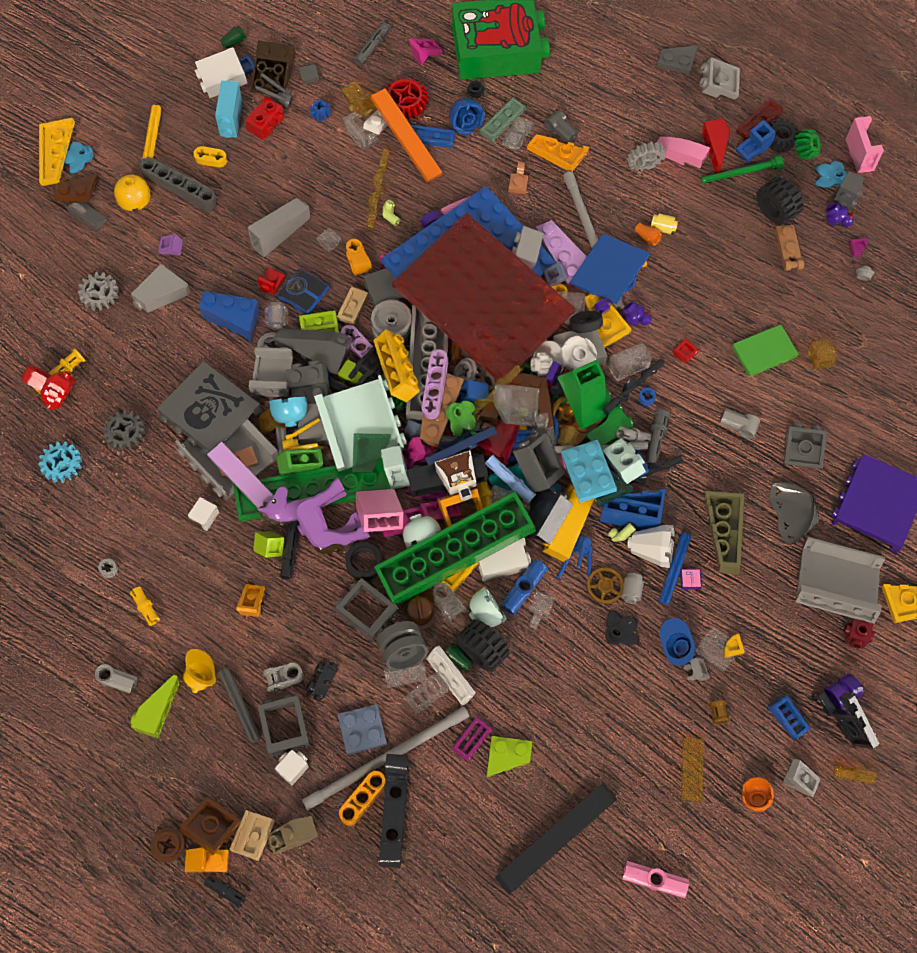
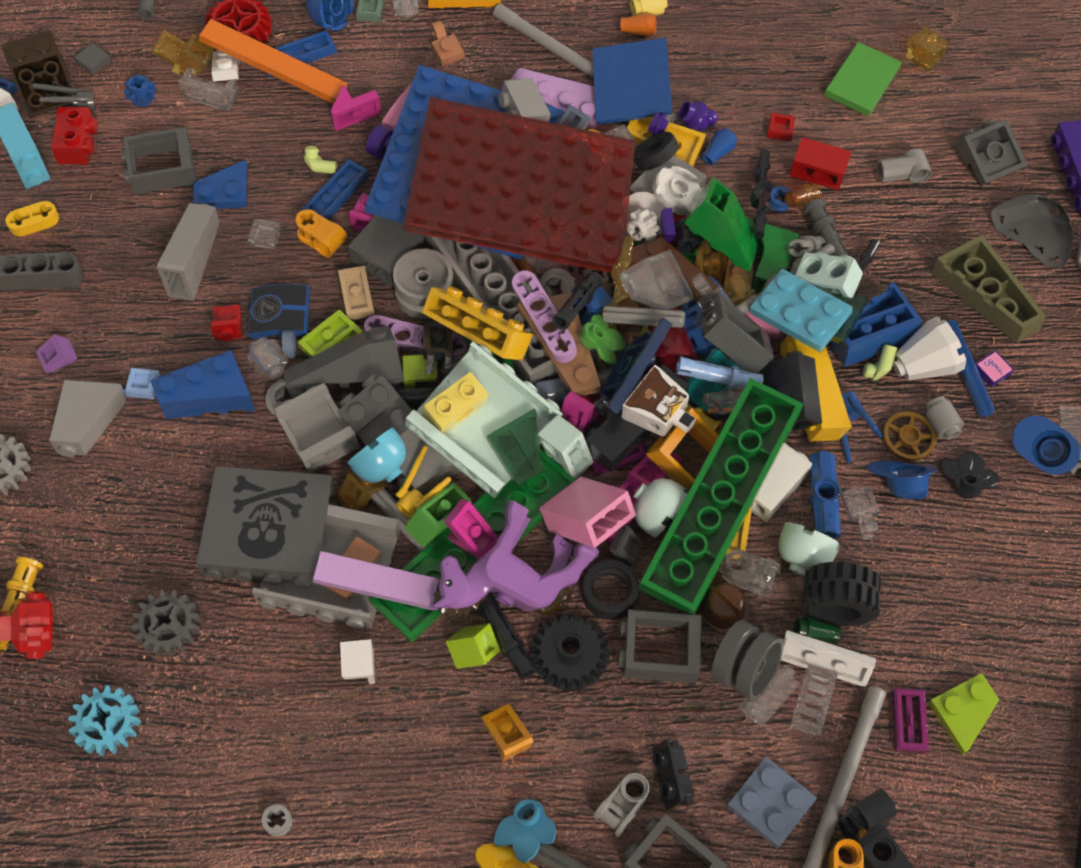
camera: 35 degrees left, 5 degrees down
(144, 606) = (367, 836): yellow pin -> none
(200, 286) = (139, 383): none -> light blue tile
(224, 656) = (523, 833): none -> dark azure plate
(292, 144) = (153, 144): none -> dark grey window
(293, 314) = (289, 343): none -> sand blue tile
(308, 479) = (470, 530): none -> dark pink slope
(318, 592) = (565, 669): none -> black gear
(325, 198) = (224, 188): none -> blue wing
(347, 405) = (455, 403): none -> light yellow brick
(377, 180) = (276, 136): clear yellow piece -> none
(386, 237) = (338, 189): none -> blue tile
(390, 543) = (626, 545): none -> dark grey tile
(429, 191) = (351, 111): none -> dark pink slope
(477, 381) = (565, 315): none -> black pin
(491, 419) = (642, 316): none -> light grey axle
(578, 605) = (904, 479): none -> blue piece
(630, 361) = (736, 165): clear brick -> none
(633, 340) = (719, 146): none -> blue cone
(659, 402) = (803, 195): none -> clear orange cone
(686, 389) = (820, 163): none -> red brick

